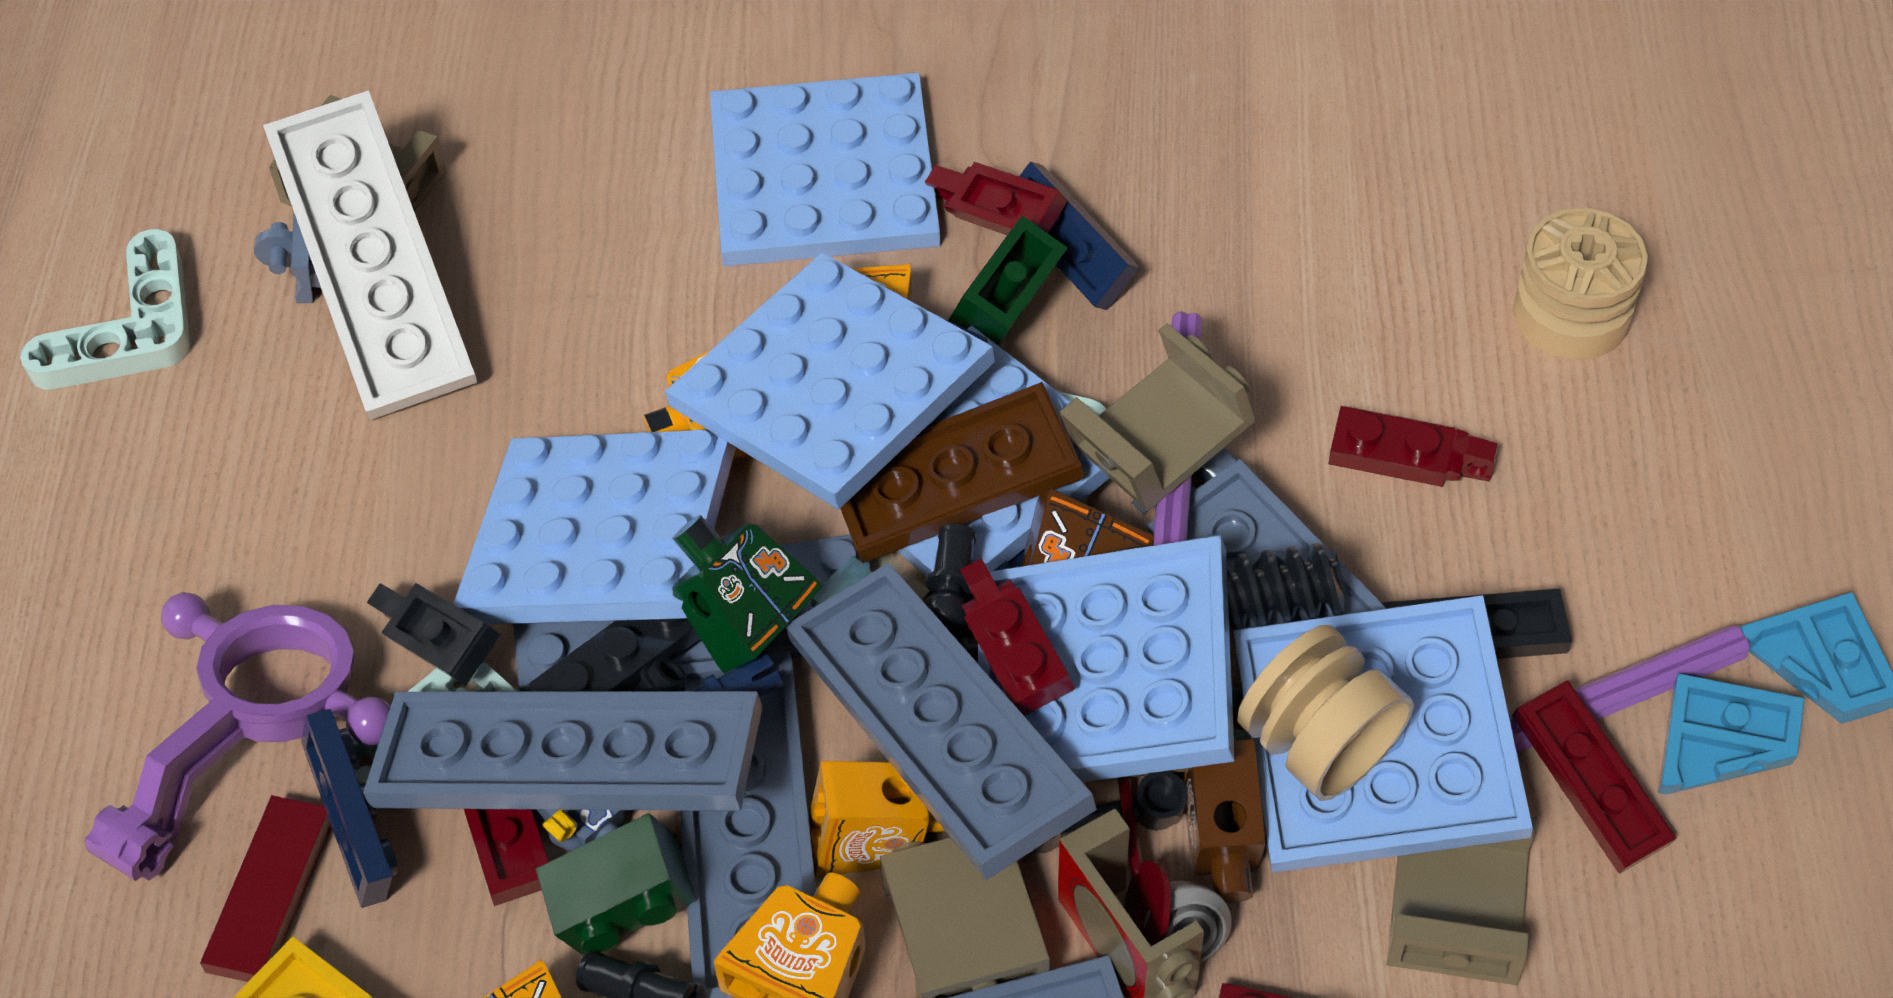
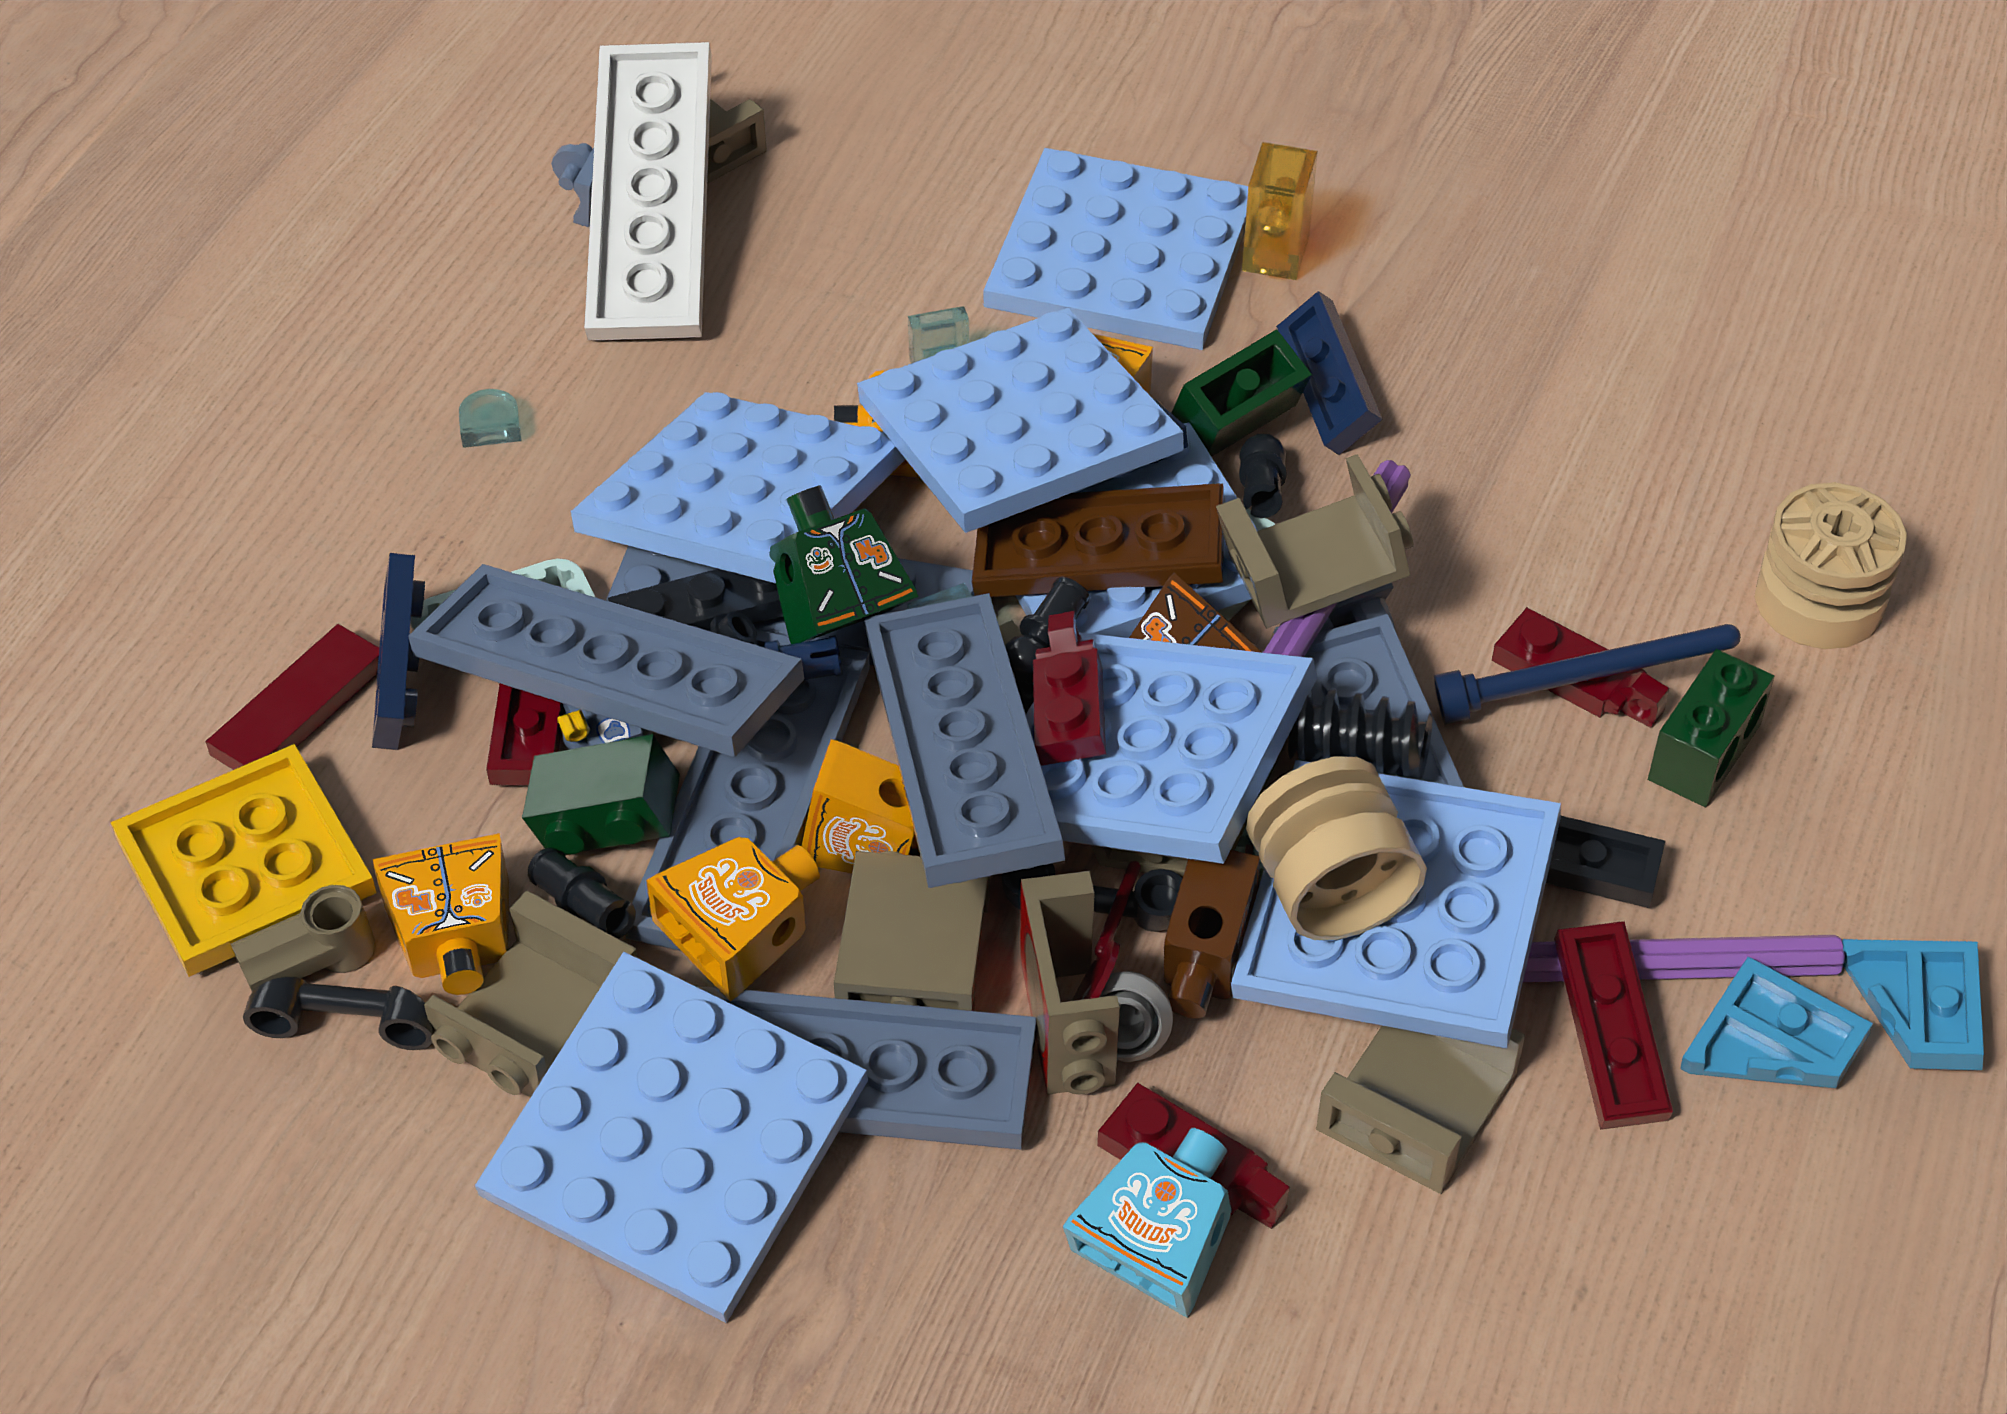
camera: 20 degrees right, 5 degrees down
(141, 836) = (213, 613): medium lavender piece -> none
(144, 325) = (435, 207): light aqua beam -> none
(314, 532) = (489, 418): none -> clear light blue tile
(435, 630) = (548, 528): black hinge -> none
(704, 314) = (937, 332): none -> clear light blue tile
(960, 92) = (1279, 210): none -> clear yellow brick
(995, 197) = (1267, 307): dark red hinge -> none
(1059, 355) = (1262, 474): none -> black pin
(1325, 509) = (1464, 694): none -> dark blue piece
(1548, 469) = (1710, 727): none -> dark green brick

